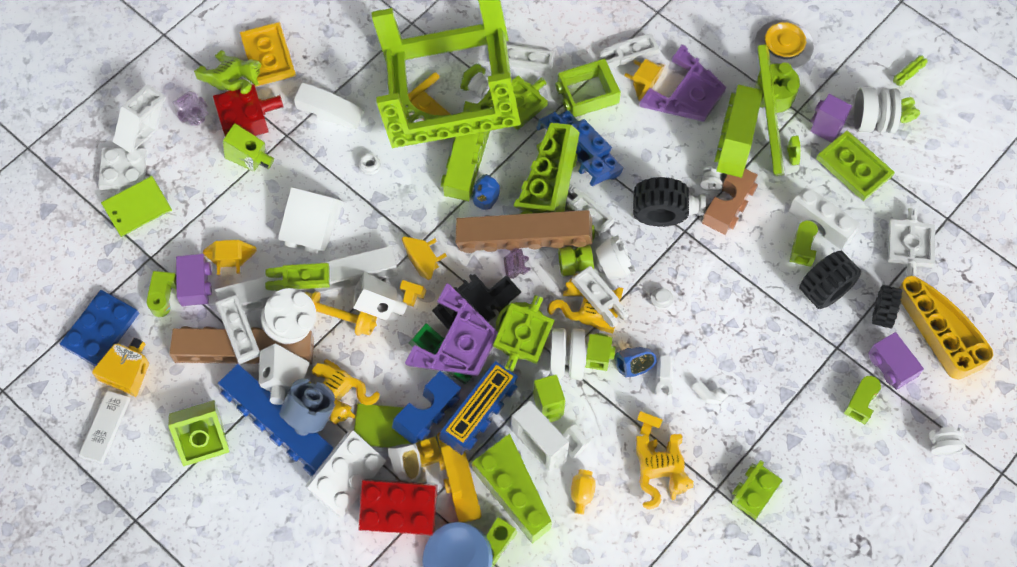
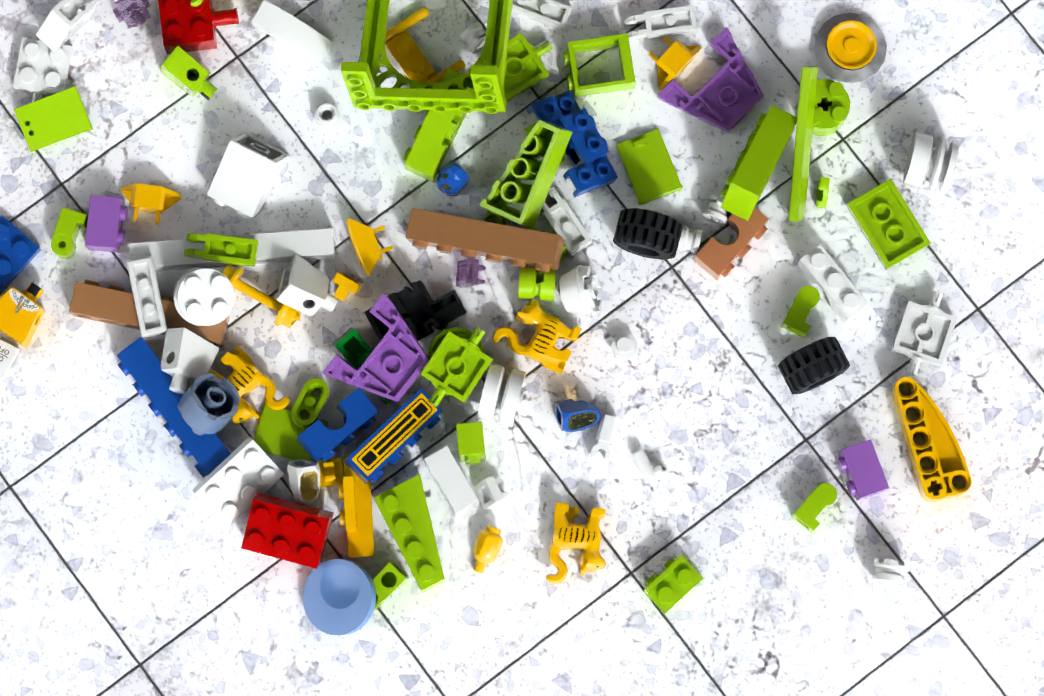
camera: 10 degrees right, 15 degrees up
(198, 433) = (88, 404): lime slope -> none
(396, 395) = (309, 404): none -> lime plate
(469, 74) = (468, 16): lime arm -> none
(599, 295) = (550, 334): white hinge -> none
(599, 351) = (539, 396): lime brick -> none
(646, 156) = (649, 166): none -> lime container
(649, 422) = (575, 486): yellow tile -> none
(830, 117) = (872, 162): medium lavender brick -> none
(886, 306) = (870, 407): black tyre -> none
(908, 110) = (970, 165): lime wheel -> none
(910, 70) = (991, 111): lime axle -> none

